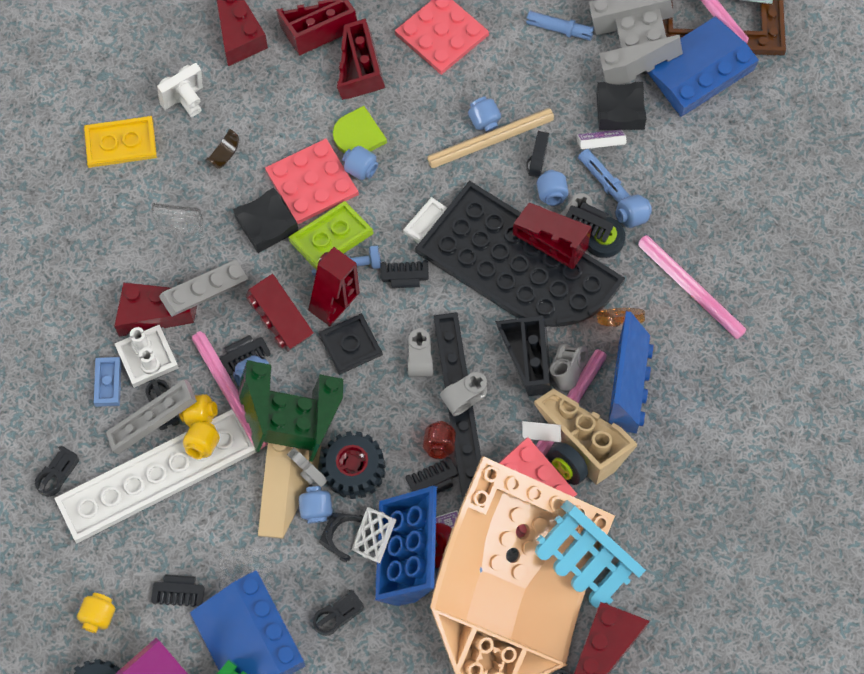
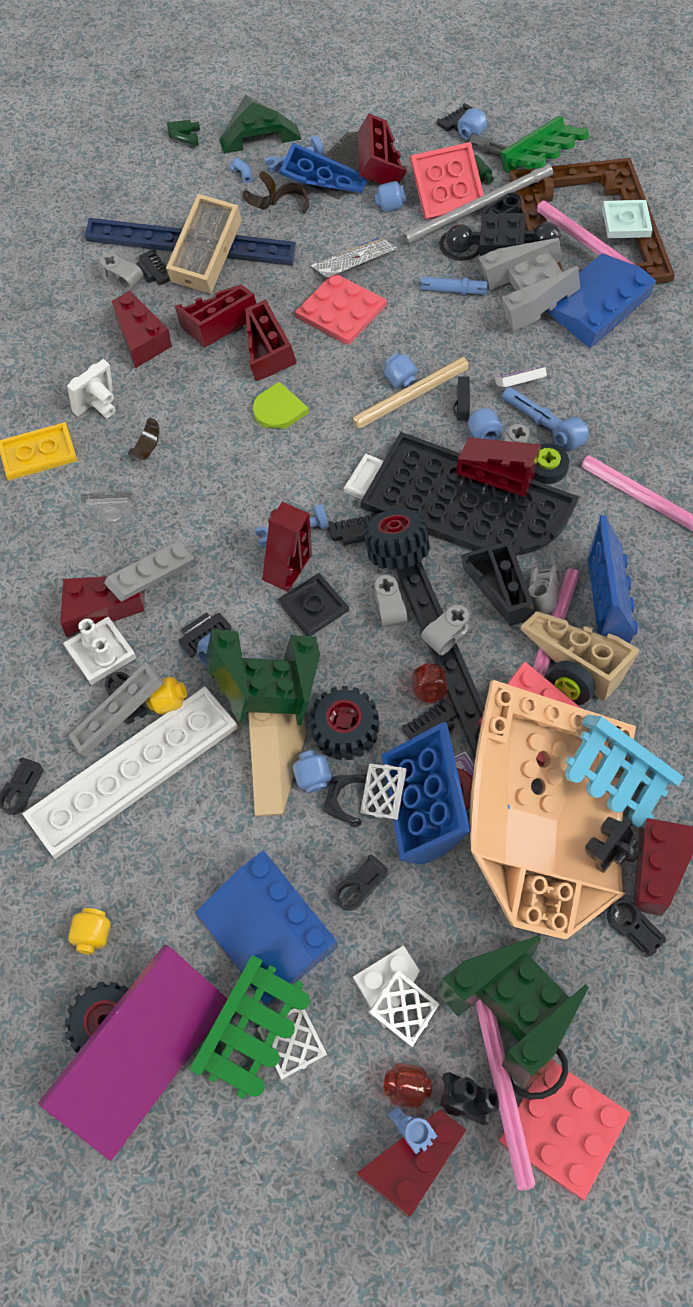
camera: 10 degrees left, 5 degrees down
(107, 381) = (61, 683): medium blue plate -> none
(178, 585) = (177, 884): black piece -> none
(201, 440) = (175, 723): yellow head -> none
(223, 379) = (191, 665): bright pink axle -> none
(266, 220) = (201, 500): black brick -> none
(278, 313) = (233, 583): dark red wedge -> none
(309, 472) = (300, 736): light grey plate -> none
(311, 181) = (240, 458): coral plate -> none
(337, 228) = (256, 507): lime tile -> none
(360, 162) = (287, 431): medium blue head -> none
(439, 293) = (396, 538): none -> black wheel
(541, 431) = (535, 655): white sticker -> none
(569, 622) = (617, 847): none -> black hips
(594, 217) = (545, 449): black piece -> none
(616, 316) = (579, 533): clear orange tile -> none
(621, 106) = (532, 344): black brick -> none

